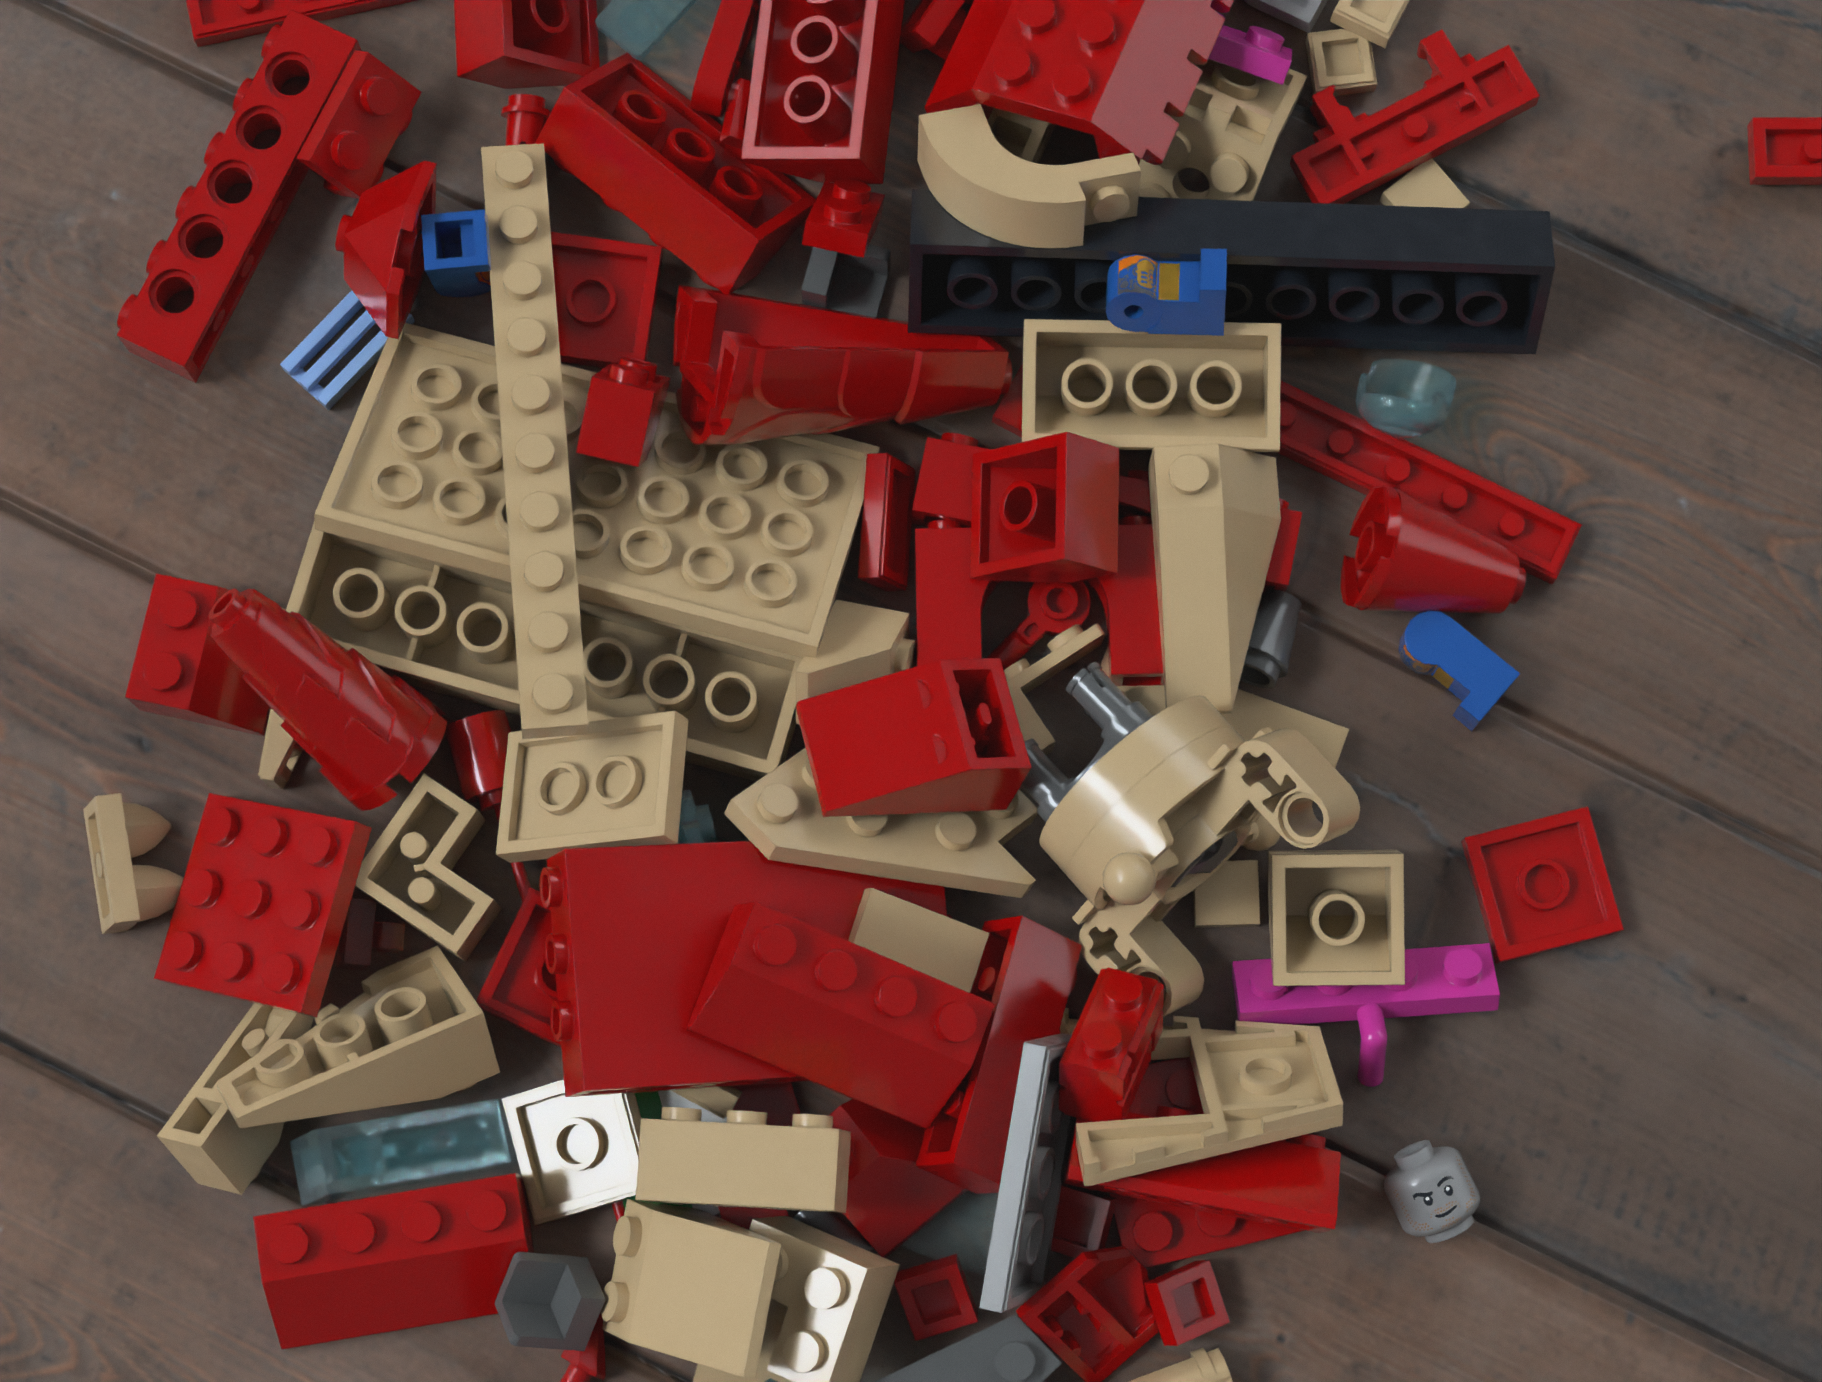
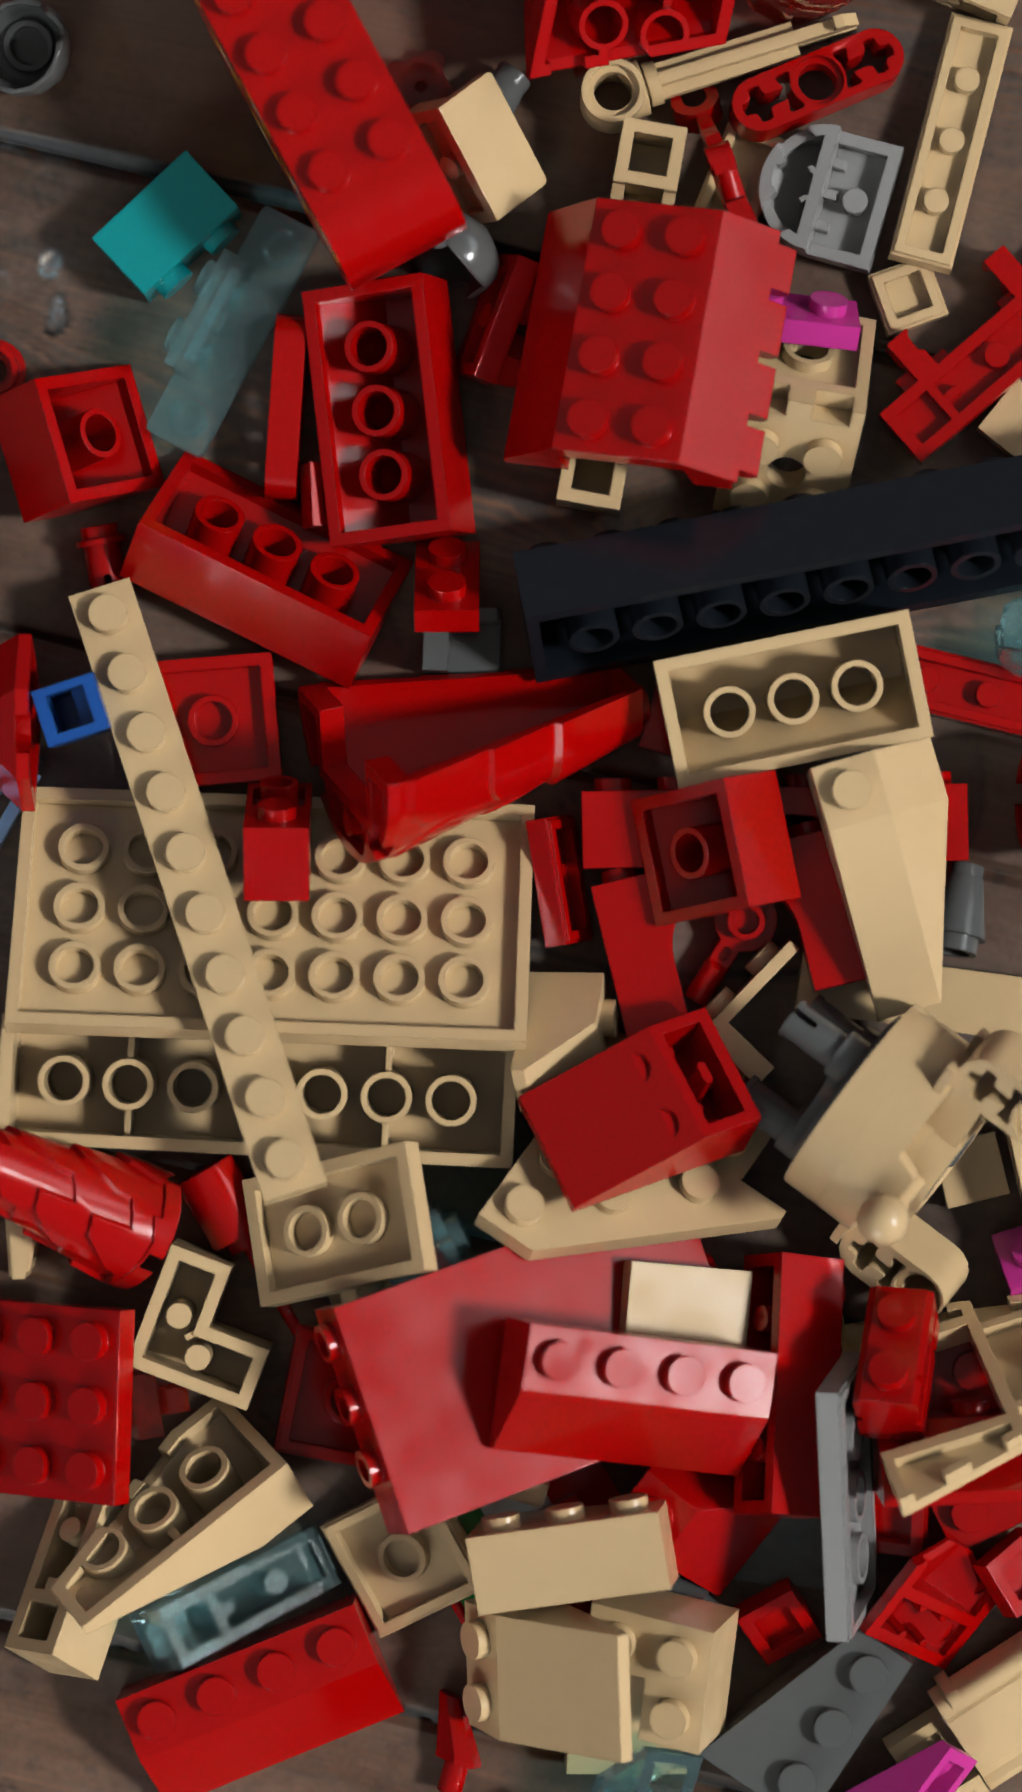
camera: 10 degrees left, 10 degrees up
(549, 1301) = (414, 1713): dark grey panel -> none
(1016, 197) = (612, 548): tan arch -> none
(1168, 294) = (791, 608): blue leg -> none

